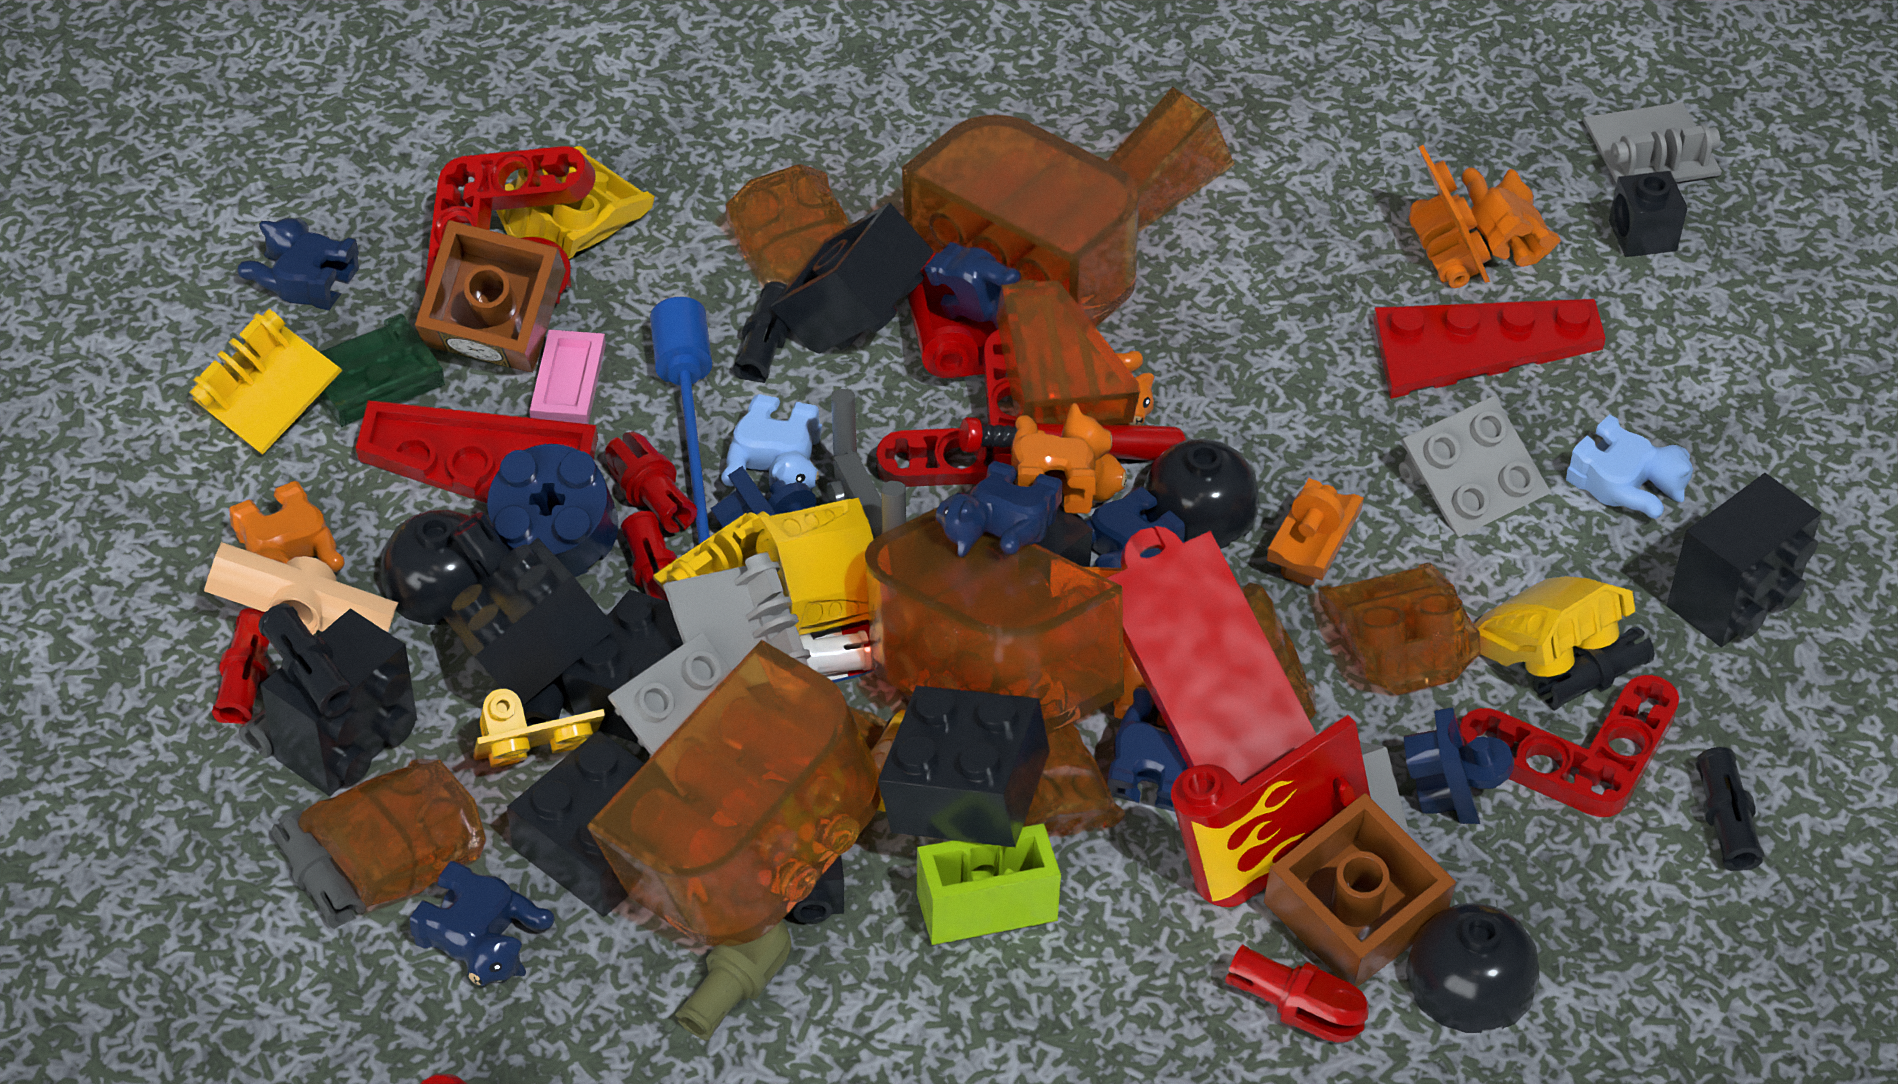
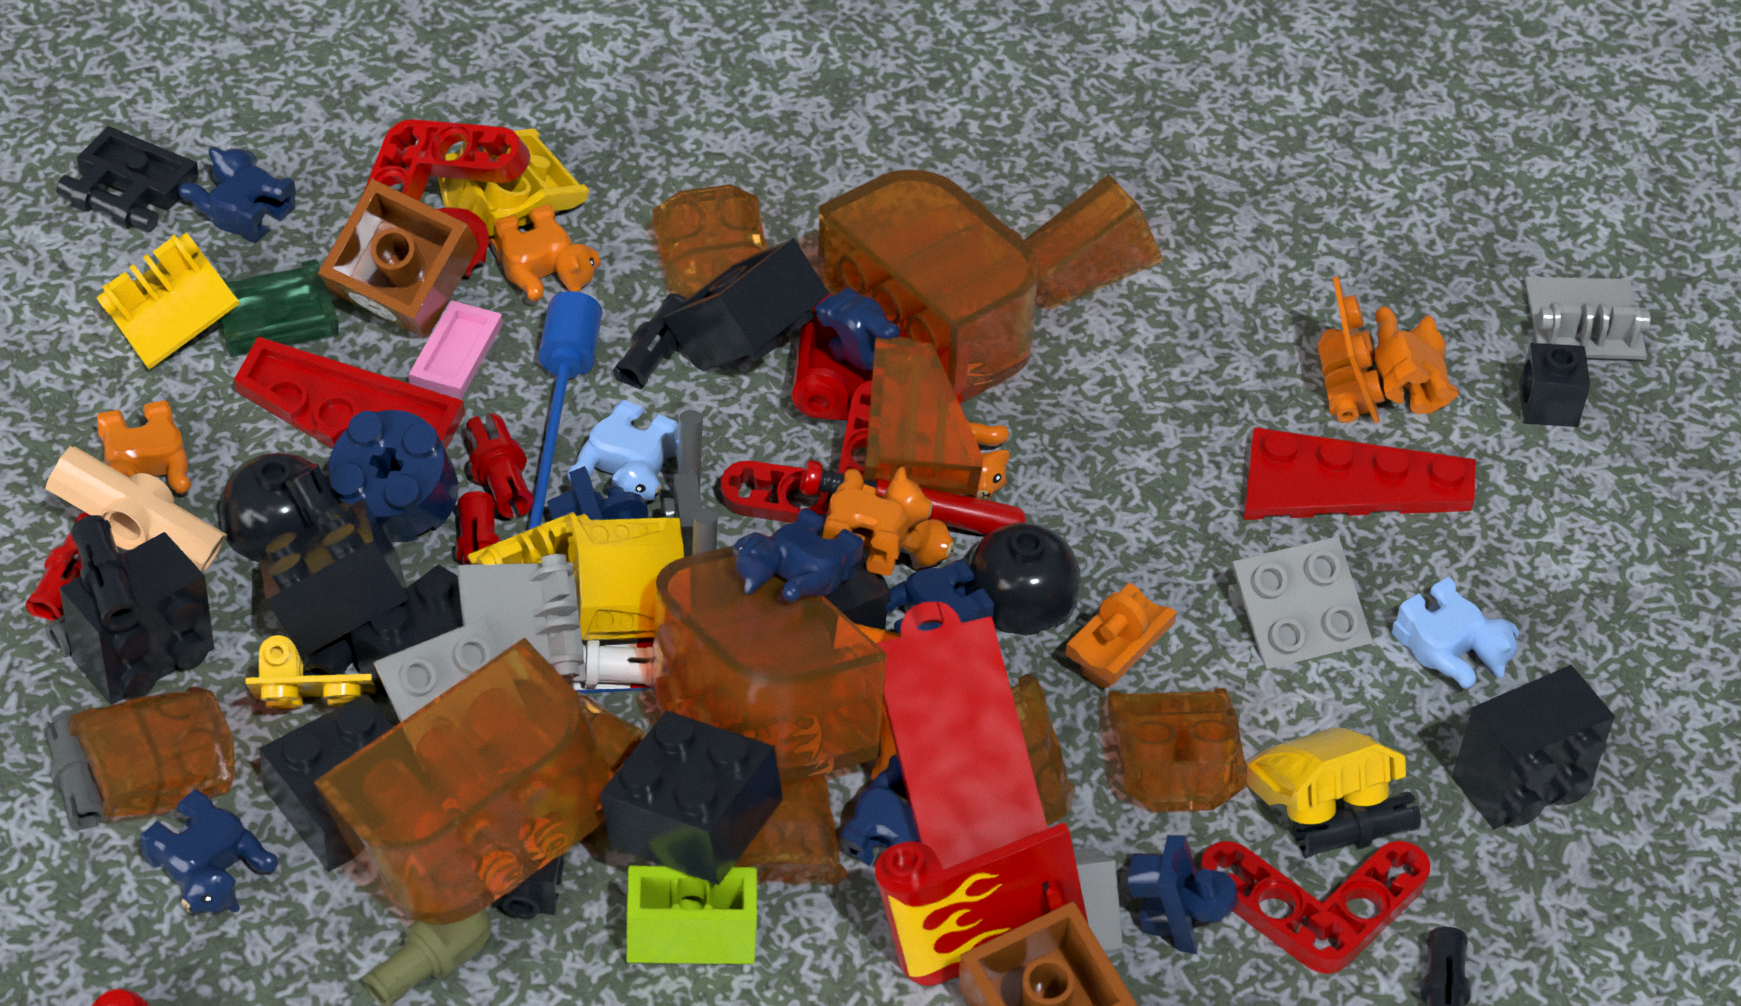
camera: 10 degrees right, 0 degrees up
(183, 256) = (133, 166): none -> black plate
(625, 265) = (540, 252): none -> orange animal

